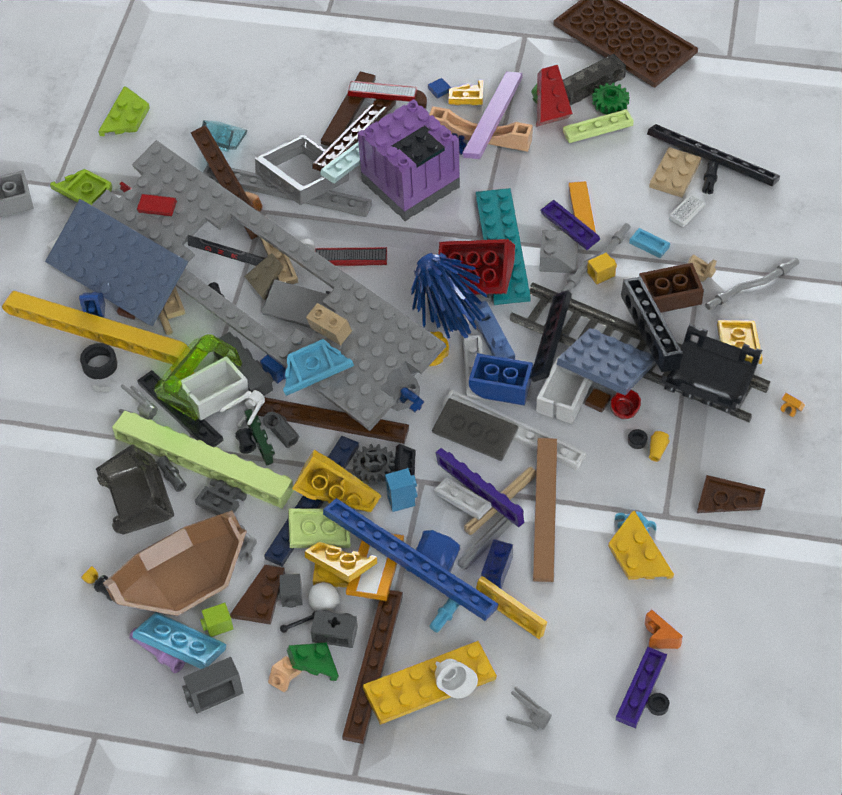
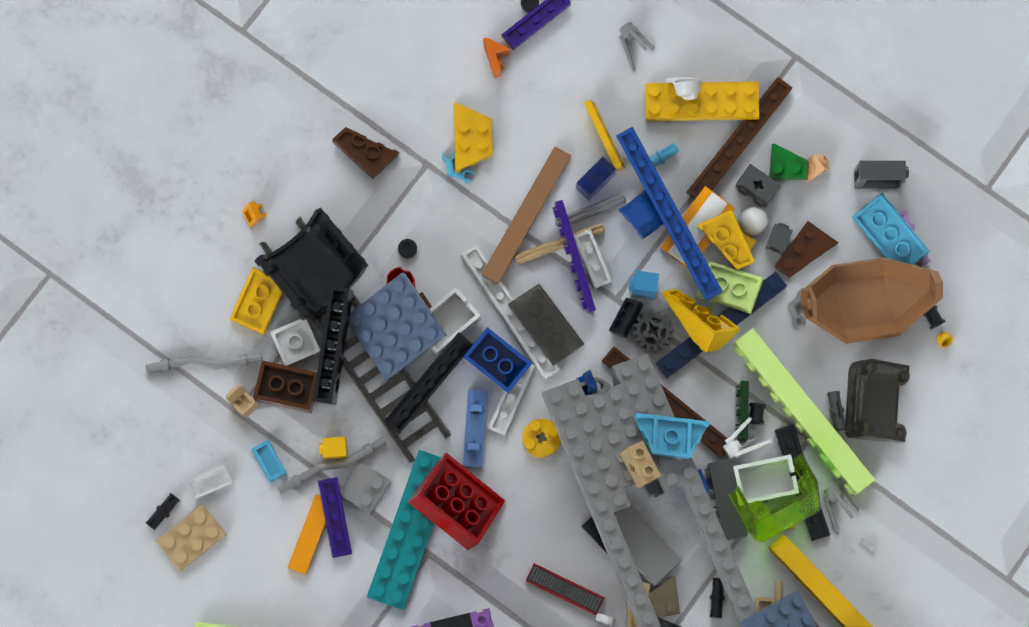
camera: 160 degrees left, 25 degrees up
(94, 350) = (872, 568): black tyre -> none
(216, 620) = (852, 240): lime brick -> none
(218, 503) = (806, 358): dark grey plate -> none
(281, 429) = (721, 413): dark grey piece -> none
(284, 628) = (797, 210): black hinge -> none
(446, 293) = (505, 467): blue plant -> none
(658, 444) = (394, 230): yellow cone -> none
(680, 320) = (295, 342): none -> white plate
(715, 155) = (142, 539): black tile -> none

